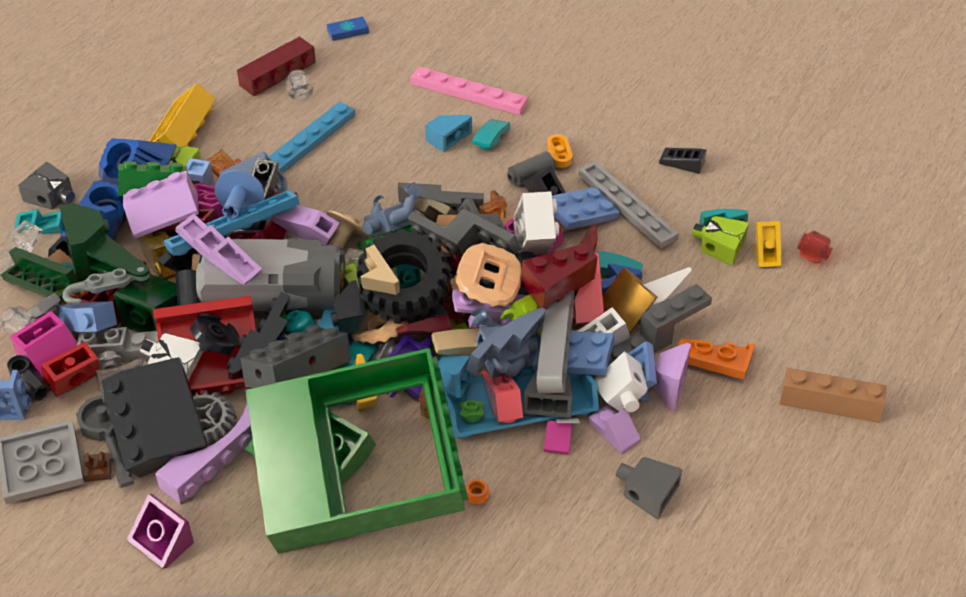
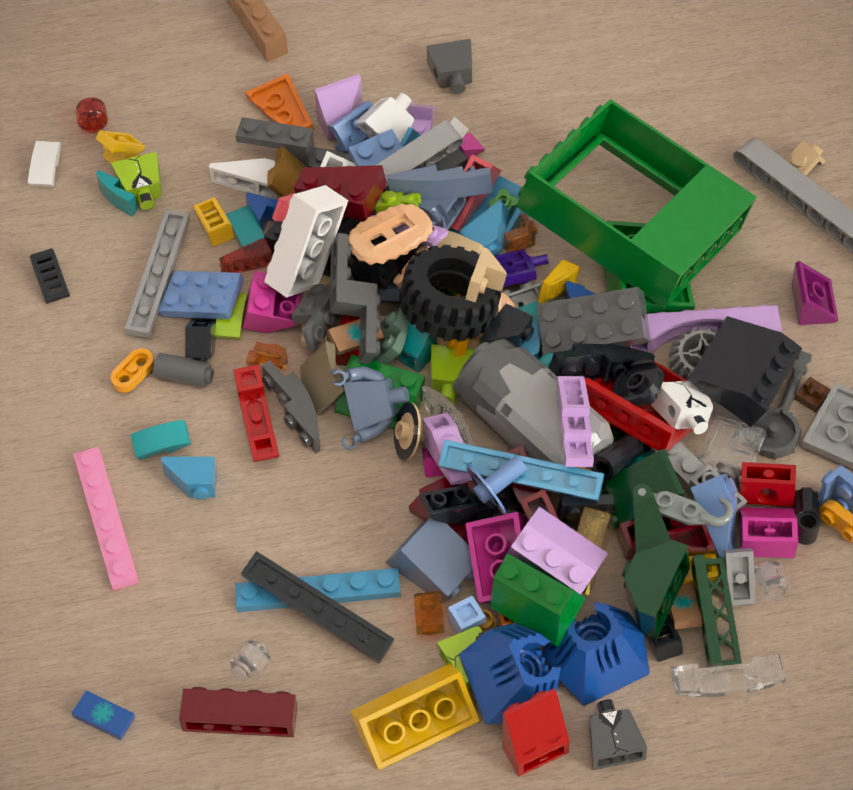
camera: 130 degrees left, 10 degrees up
(48, 222) = (654, 704): teal slope -> none
(91, 145) = (534, 732): none -> red slope
(289, 121) = (317, 607): none -> black plate
(432, 173) = (255, 413): none -> red slope
(642, 253) = (214, 222): none -> yellow slope
(794, 205) = (44, 163): none -> white slope

